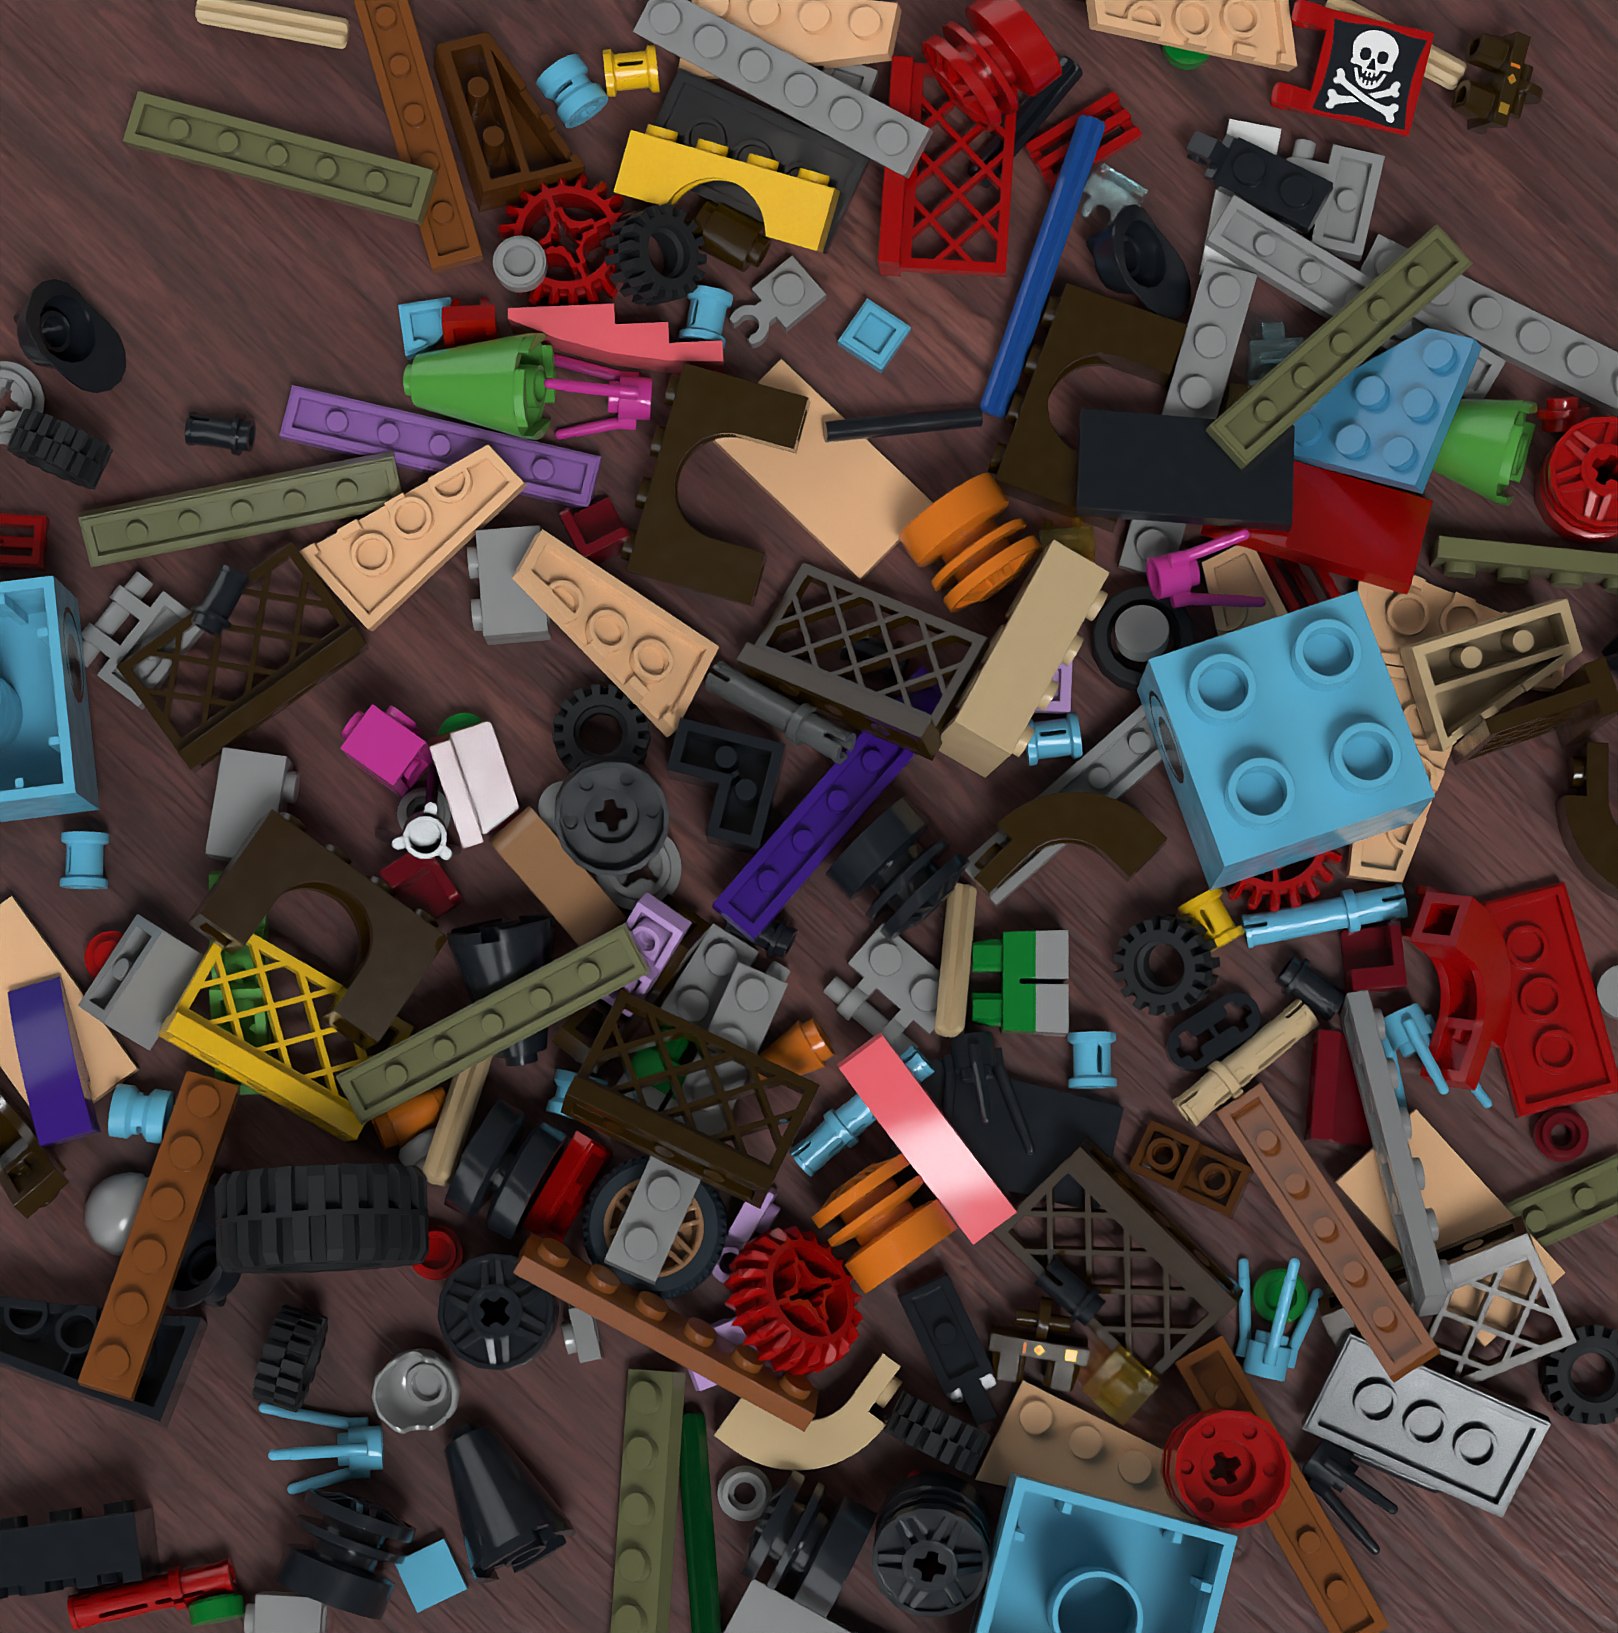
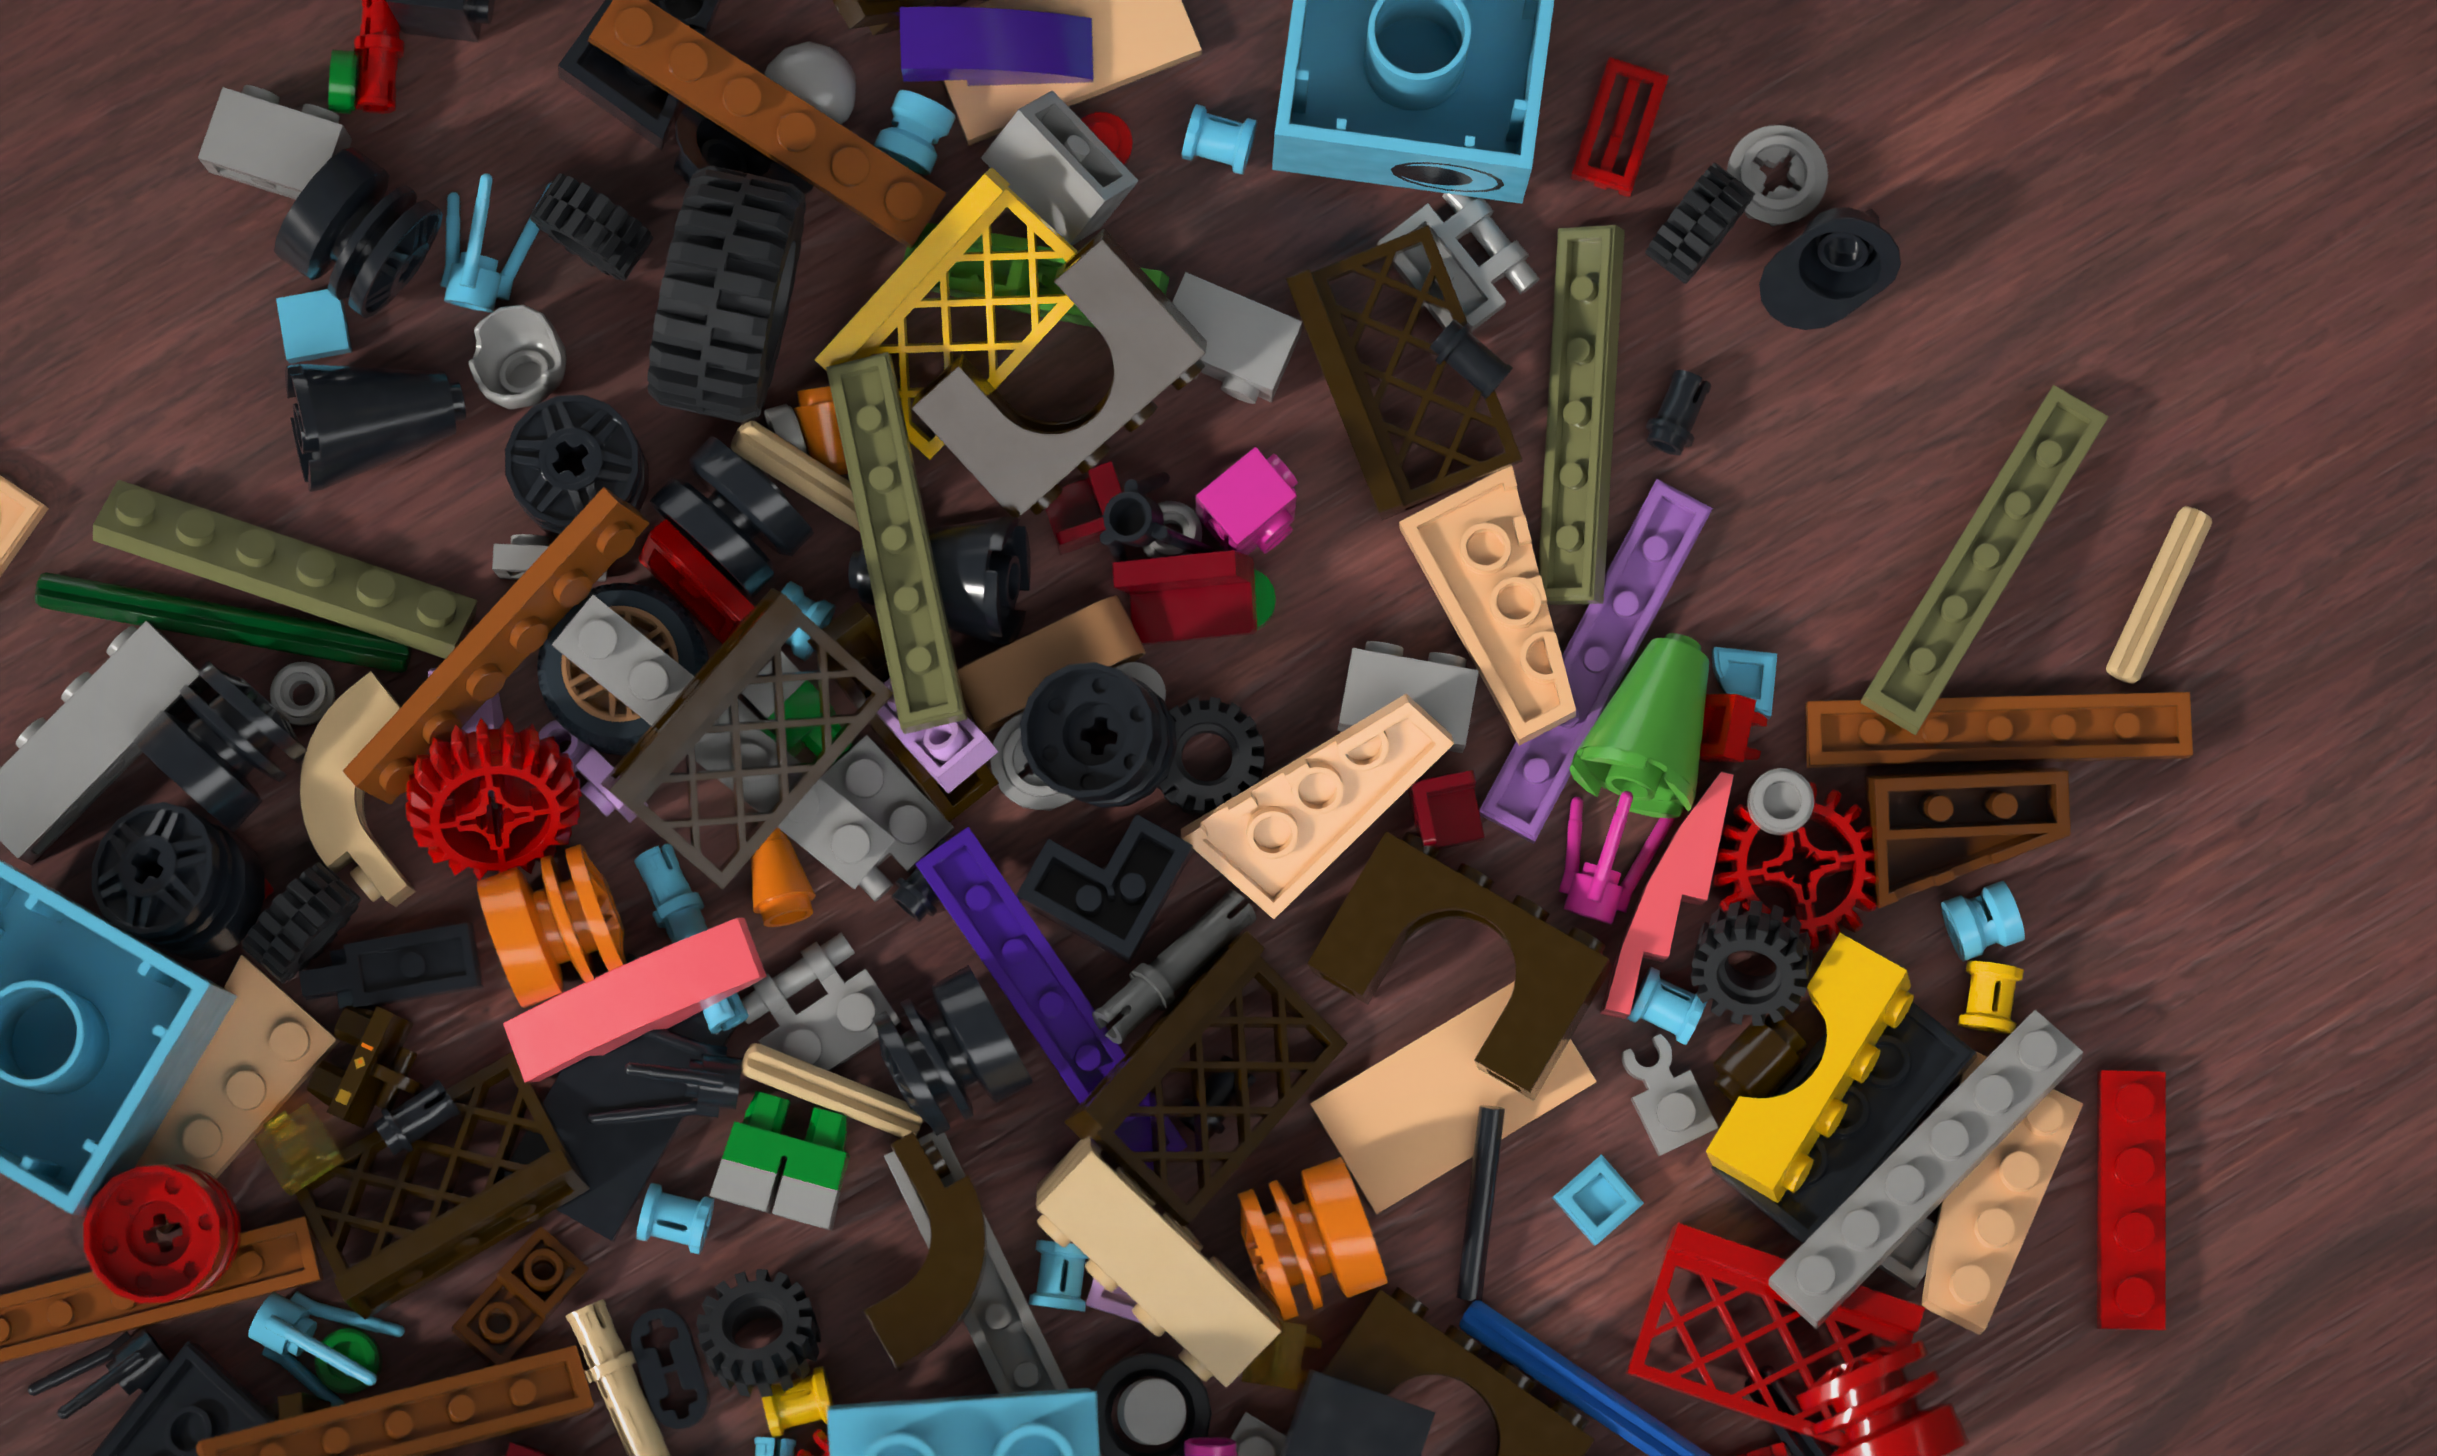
camera: 100 degrees right, 0 degrees up
(444, 1254) = (666, 427): red plate -> none

